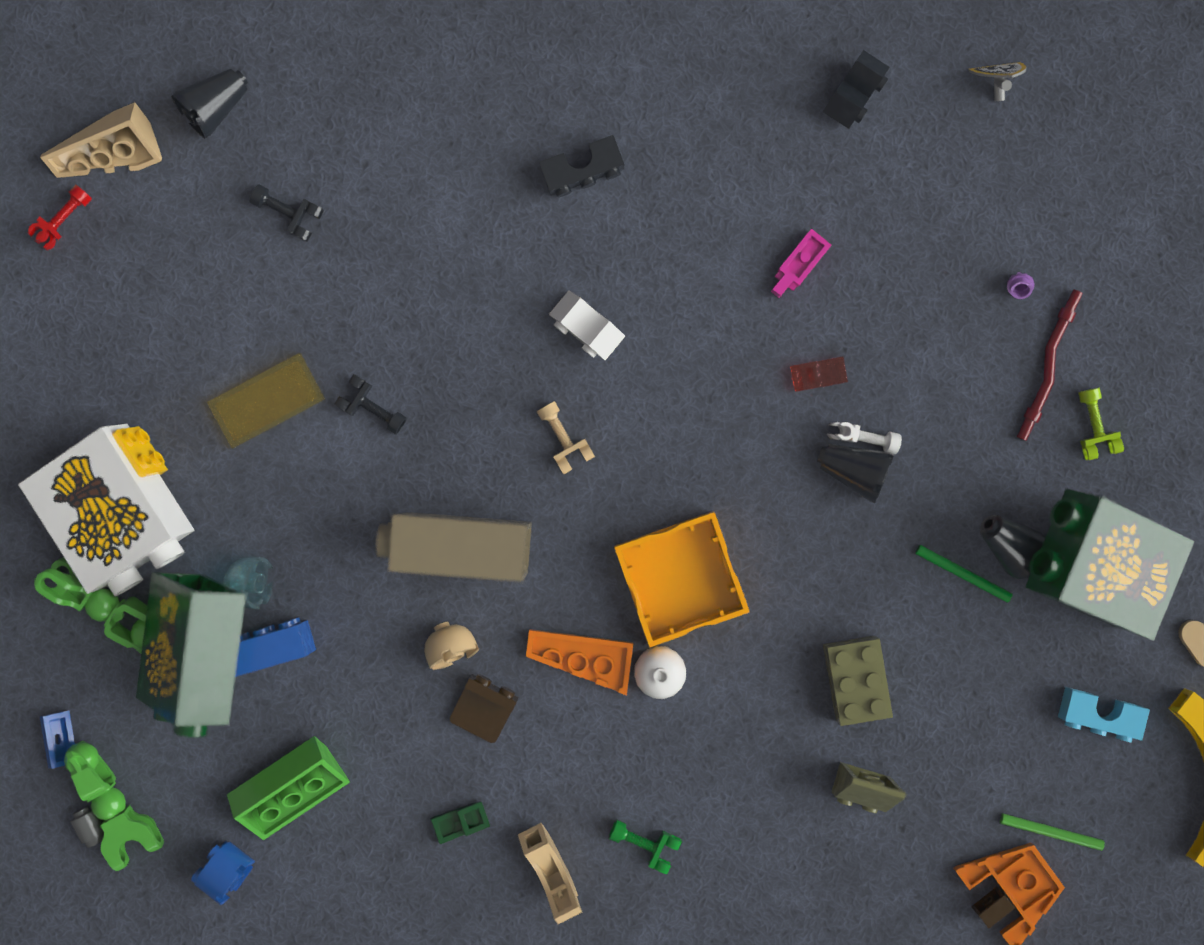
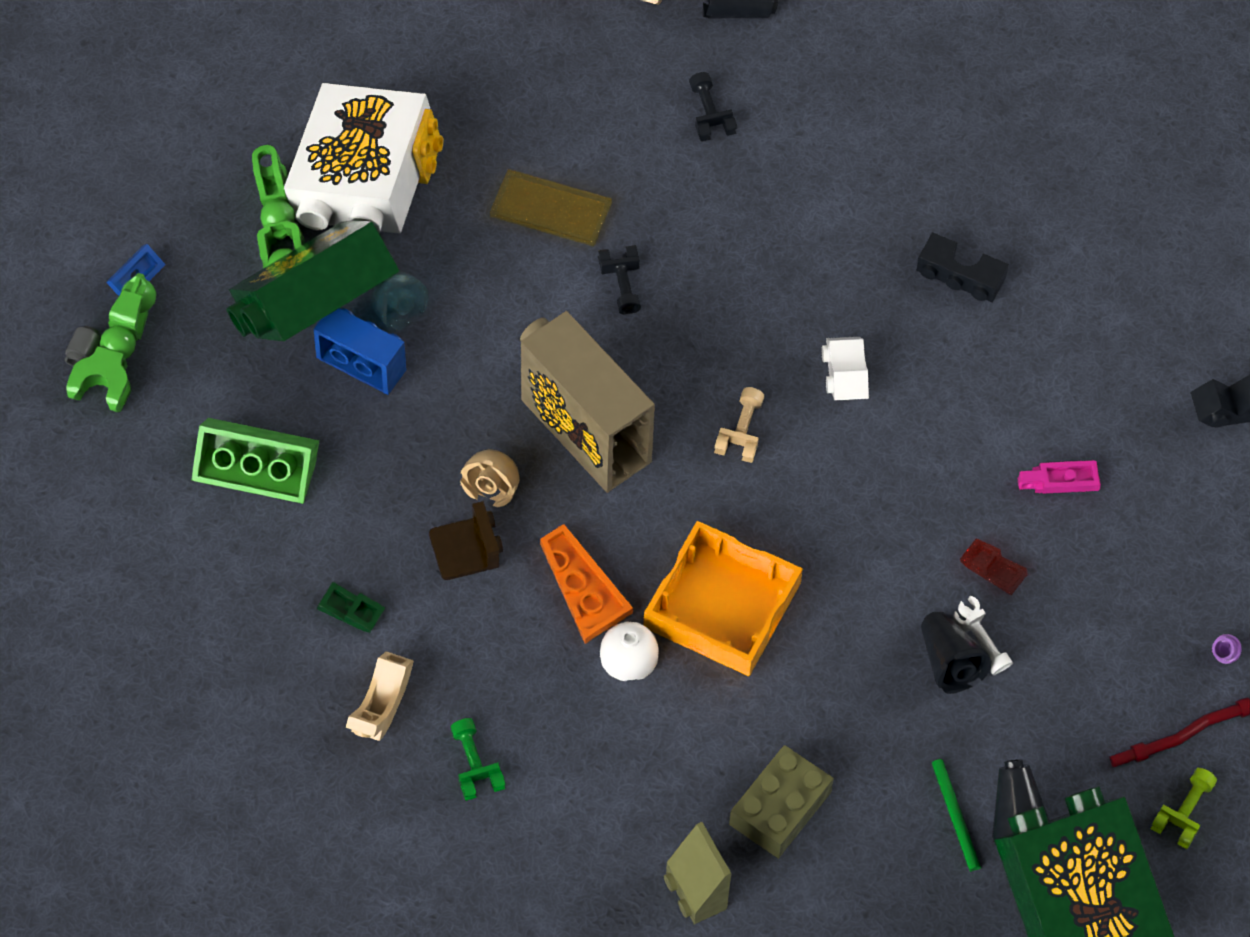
camera: 45 degrees right, 30 degrees down
(223, 872) = (141, 462): blue brick -> none

